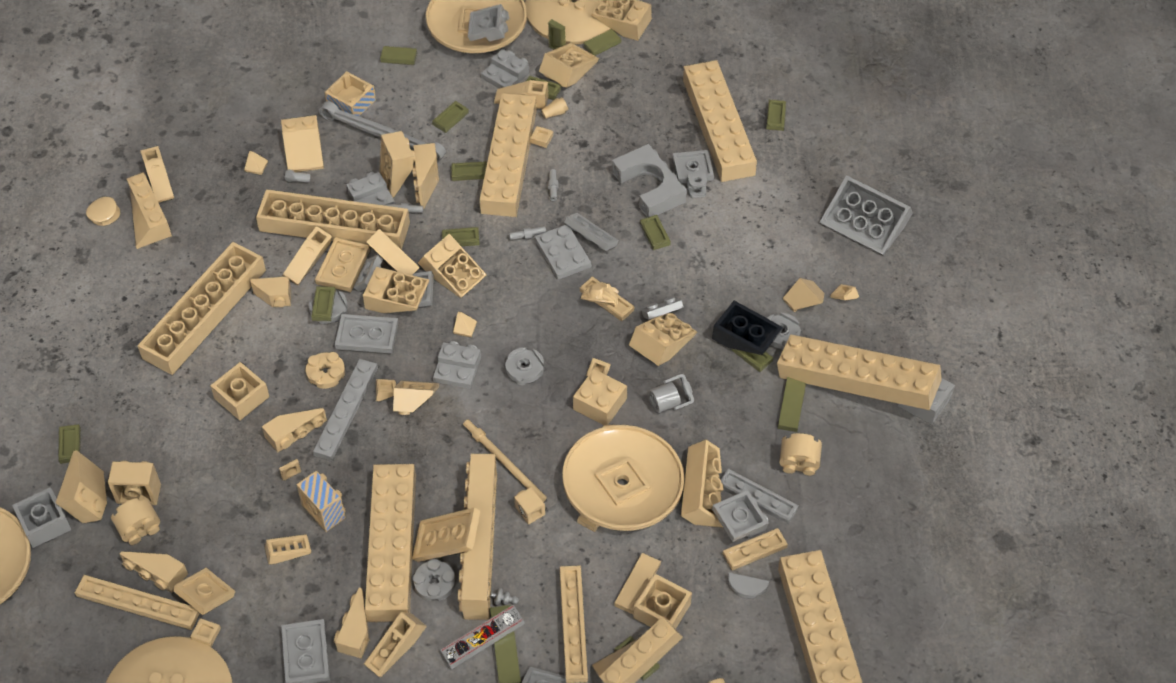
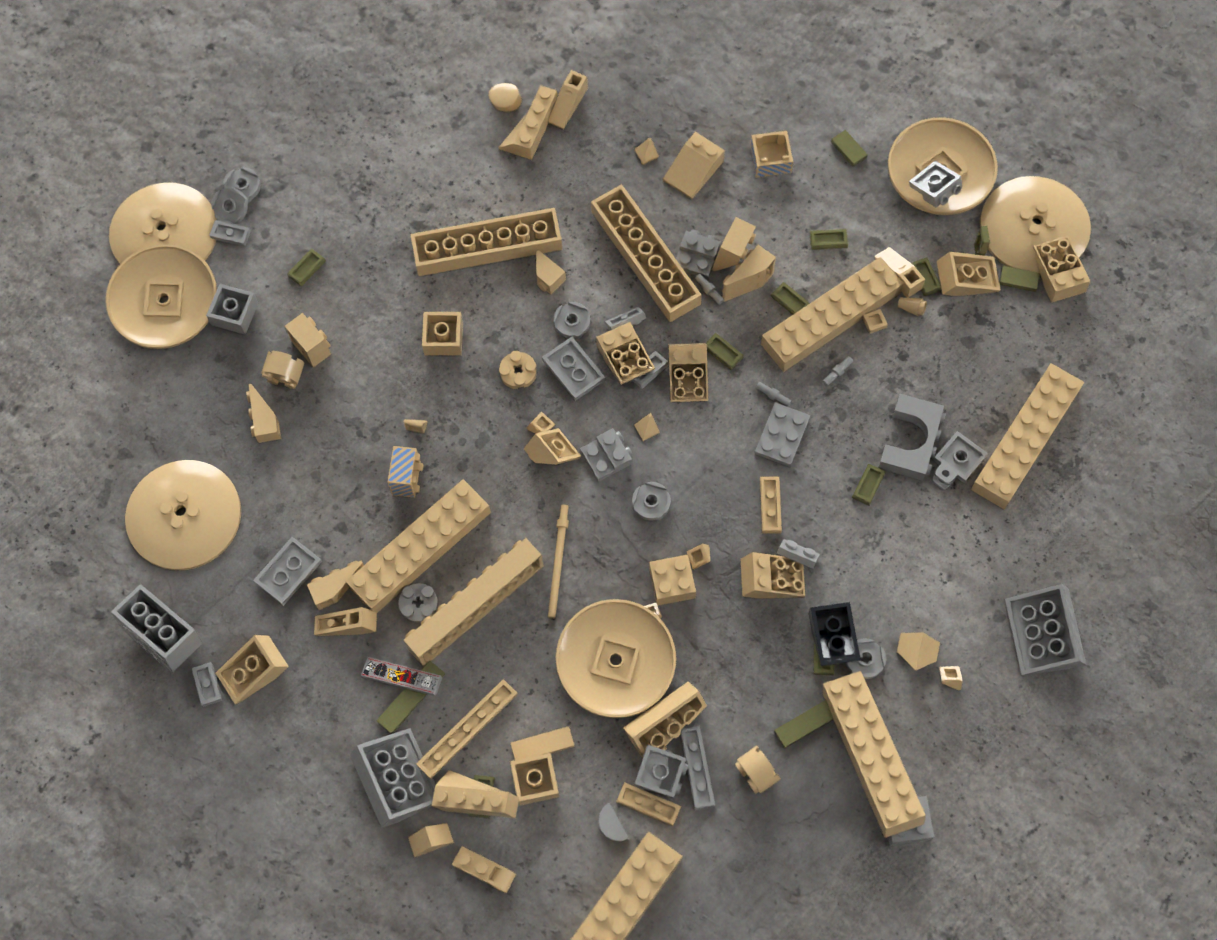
camera: 50 degrees right, 15 degrees up
(83, 490) = (274, 311): tan slope -> none
(137, 602) = (229, 429): tan plate -> none
(204, 591) = (272, 463): tan plate -> none
(205, 632) = (246, 493): tan plate -> none
(278, 543) = (359, 478): tan slope -> none
(290, 427) = (444, 393): tan slope -> none
(291, 176) = (662, 191): light grey arm -> none
(308, 255) = (597, 266): tan slope -> none
(323, 303) = (567, 316): olive tile -> none
(331, 111) = (764, 212): light grey piece -> none
(342, 264) = (616, 295): tan plate -> none
(345, 410) = (499, 414): light grey plate -> none
(392, 253) = (653, 322): tan tile -> none
(446, 534) = (448, 582): tan plate -> none
(505, 597) = (447, 663): light grey hair -> none
(506, 69) = (914, 236): light grey plate -> none
(529, 505) = (534, 612): tan brick -> none
(591, 231) = (819, 438): light grey plate -> none
(601, 293) = (765, 498): tan hat -> none
(667, 395) = (717, 627): light grey piece -> none
(776, 115) = (1083, 473): olive tile -> none

